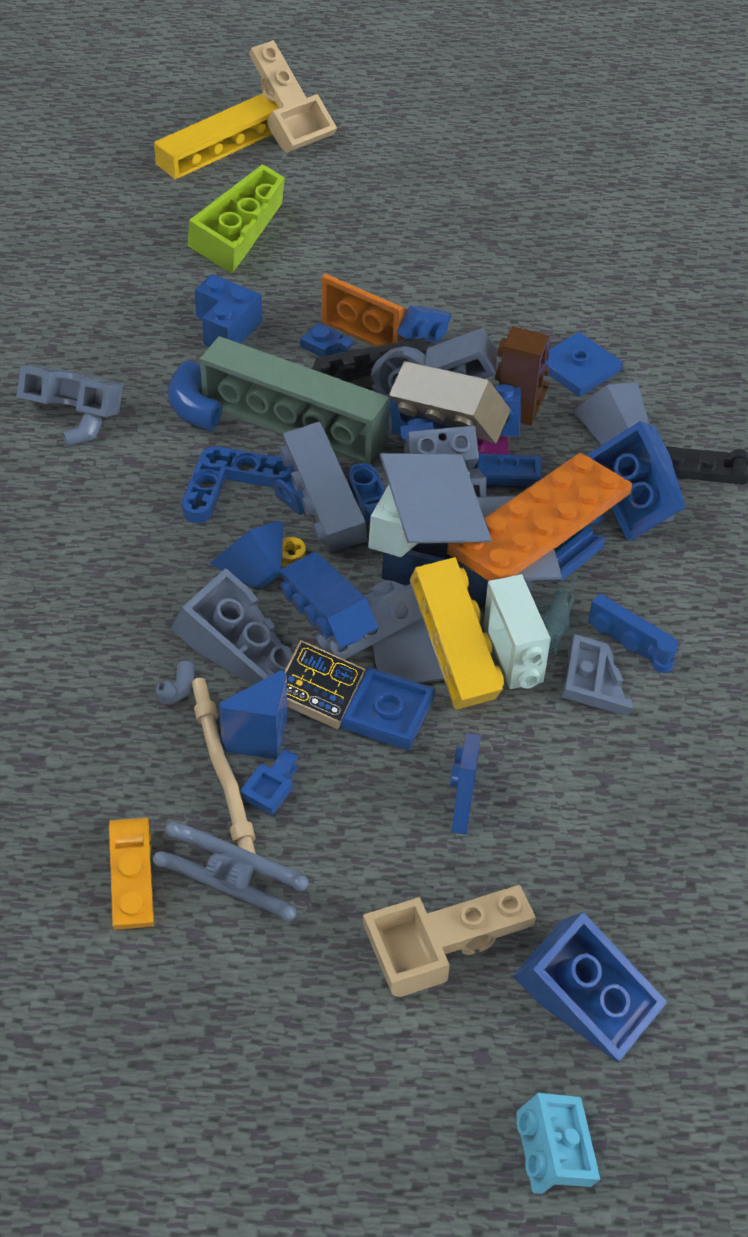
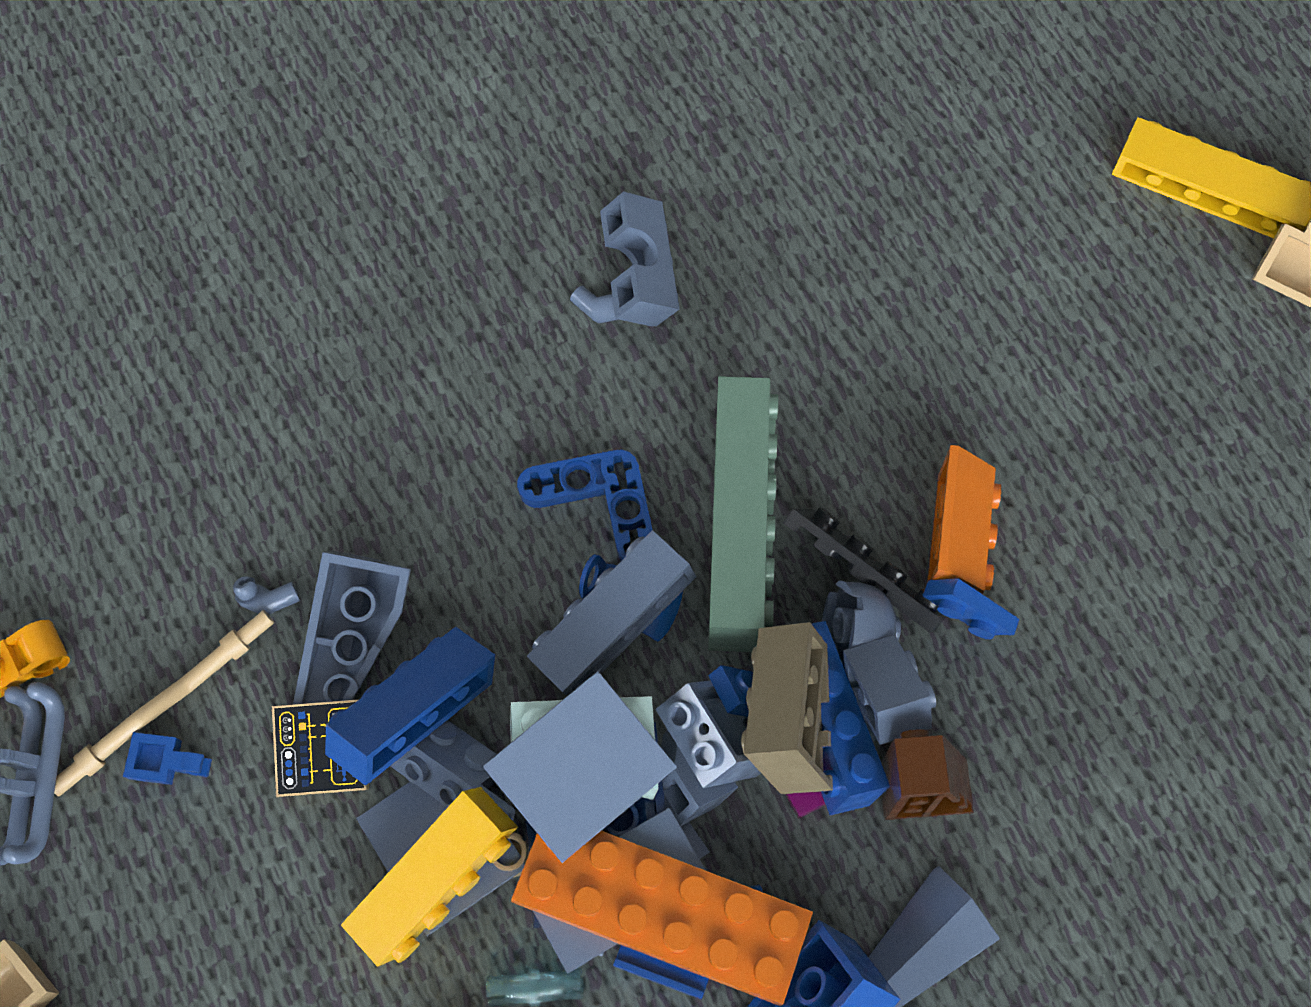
camera: 70 degrees right, 20 degrees up
(187, 400) = (693, 394): blue cylinder -> none
(227, 310) = (871, 369): blue brick -> none
(236, 218) = (1058, 286): lime wedge -> none
(255, 556) = (484, 587): blue slope -> none
(256, 718) = (219, 713): blue slope -> none
(295, 545) = (509, 636): yellow bush -> none
(325, 341) = (896, 497): blue plate -> none
(366, 488) = (634, 674): blue piece -> none
(388, 708) = (318, 841): blue plate -> none
(463, 778) = (224, 974): blue wing -> none
(510, 469) = (773, 827): blue plate -> none
(516, 632) = (467, 949): light aqua window -> none
(581, 364) = (1035, 838): blue plate -> none

